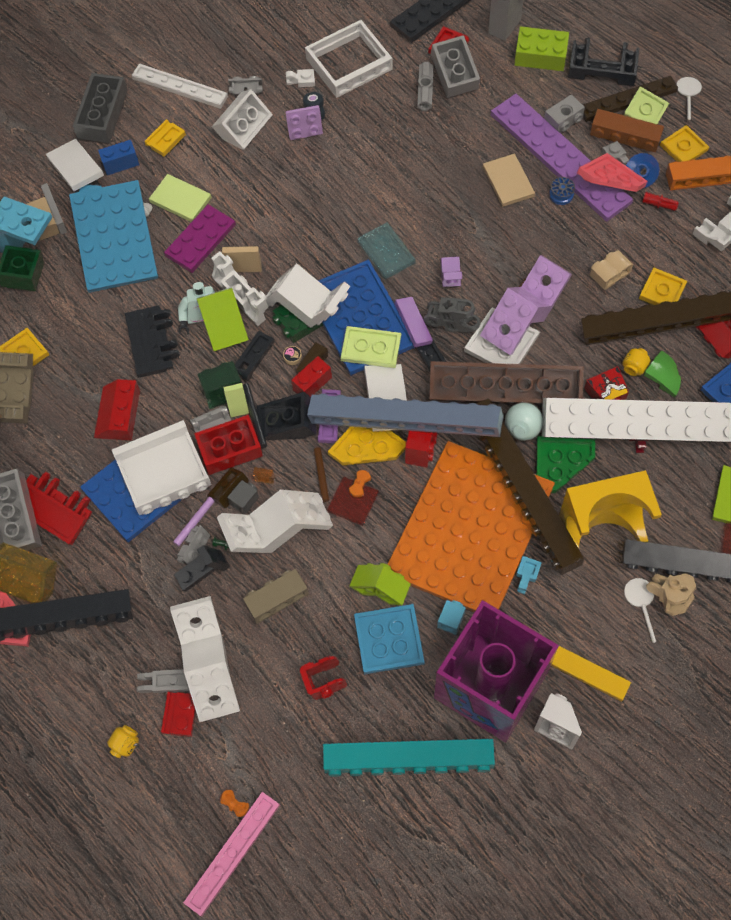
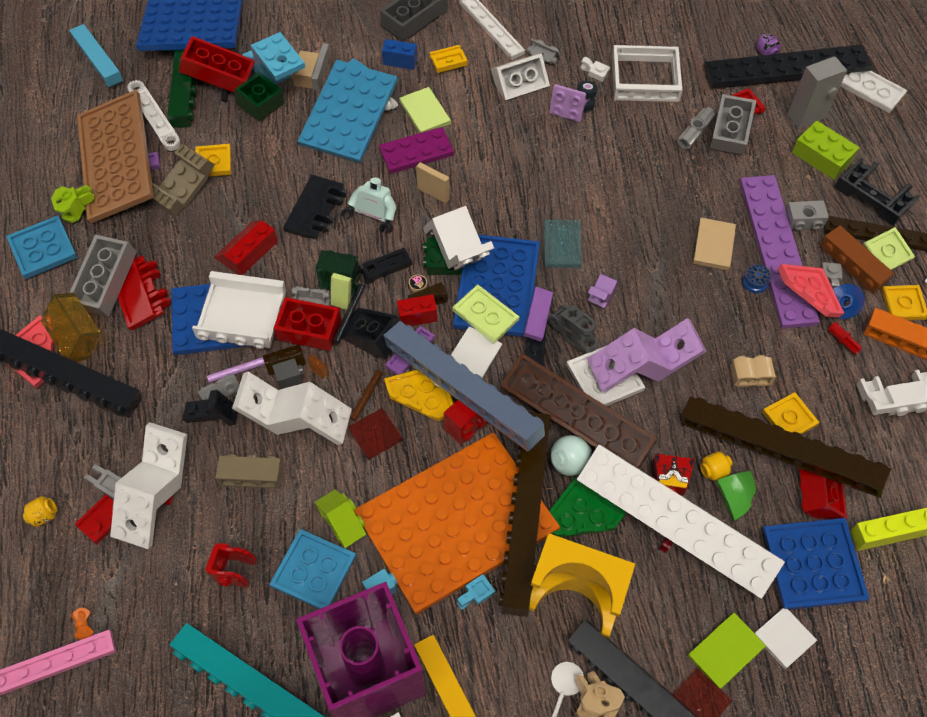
camera: 30 degrees right, 5 degrees down
(74, 165) = (361, 42): white tile -> none
(222, 319) = (379, 220): lime tile -> none
(247, 298) = (412, 204): white bracket -> none
(357, 488) = (383, 425): orange piece -> none

